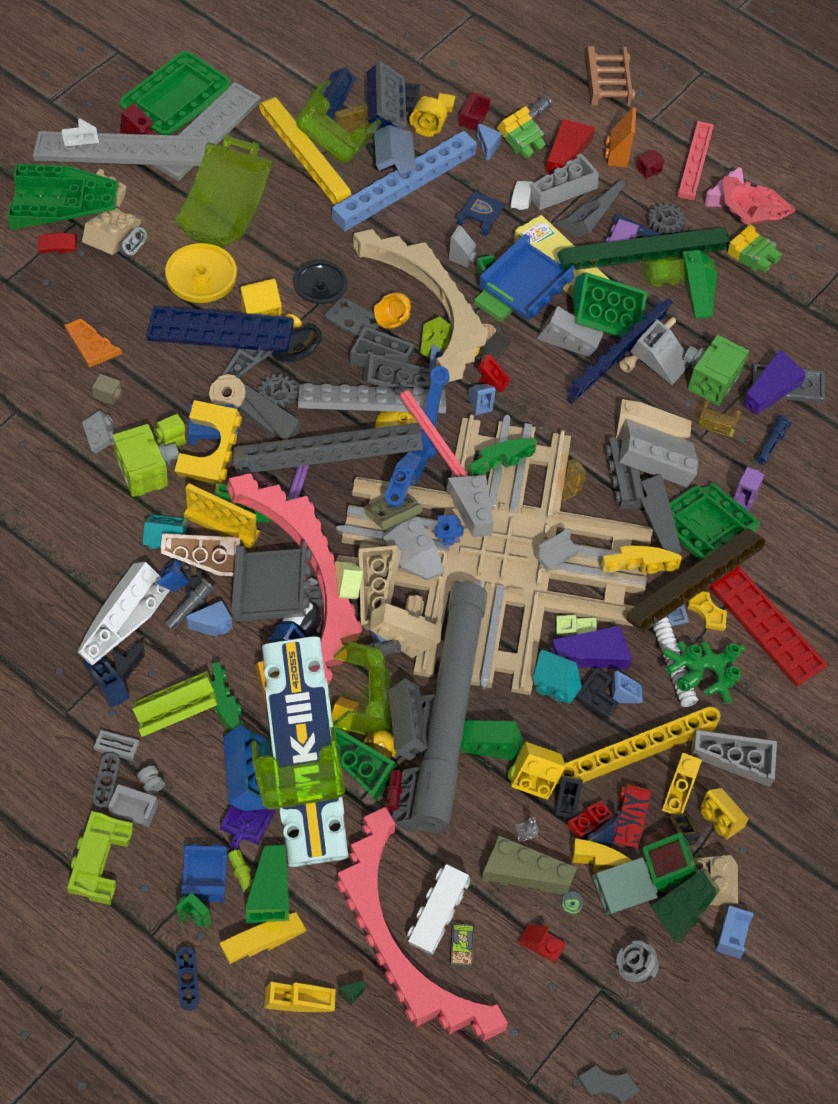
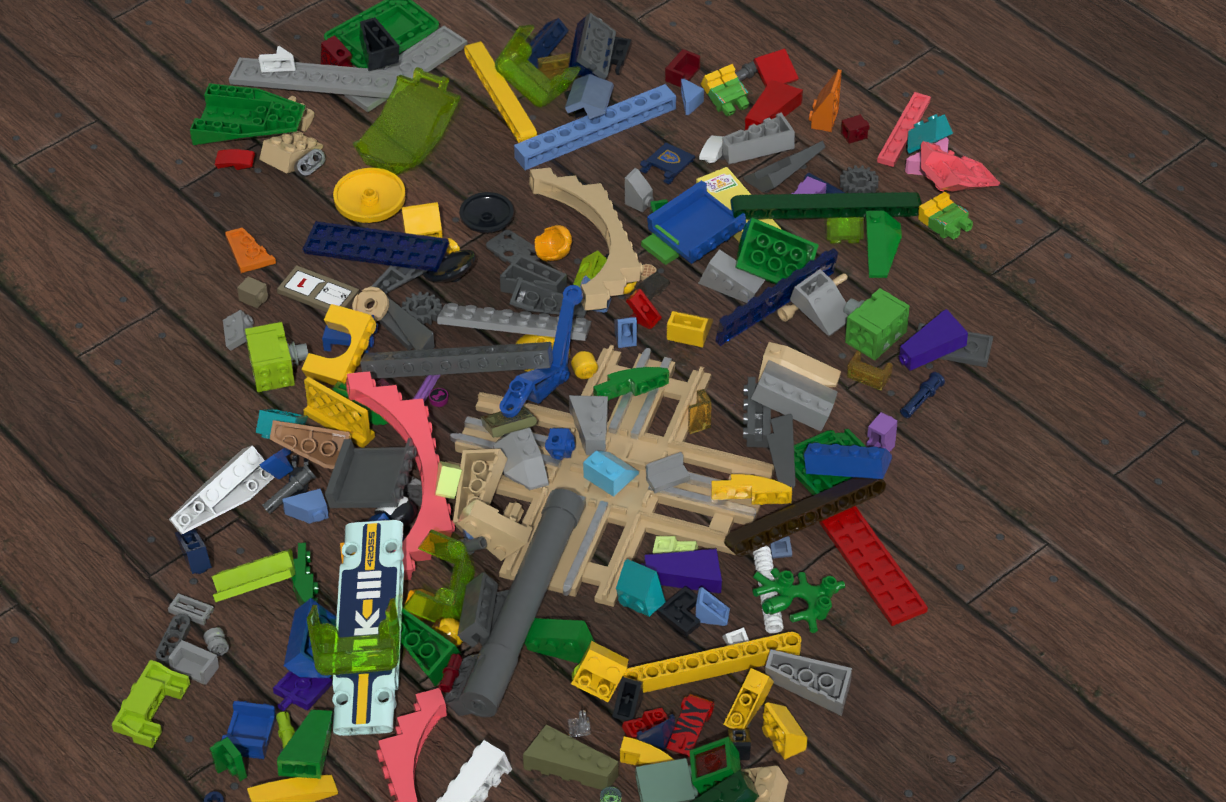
camera: 15 degrees right, 10 degrees down
(127, 664) = (217, 538): black slope -> none
(170, 380) = (316, 289): none -> tile
(171, 431) = (305, 331): lime brick -> none
(177, 110) = (377, 45): none -> black wedge
(313, 486) = (438, 397): none -> tile
(428, 116) = (632, 68): yellow brick -> none
(433, 434) = (561, 352): coral axle -> none
(449, 100) = (655, 58): yellow tile -> none
(451, 437) = (584, 365): none -> yellow head
(500, 554) = (608, 472): none -> medium azure slope
(540, 389) = (688, 328): none -> yellow slope
(563, 105) = (776, 67): none -> red tile
(594, 81) = (816, 48): nougat fence -> none
(655, 717) = (735, 637): none -> white slope
(712, 615) = (819, 552): yellow tile -> none
(724, 164) = (930, 132): none -> teal slope
(725, 521) = (847, 460): none -> blue slope

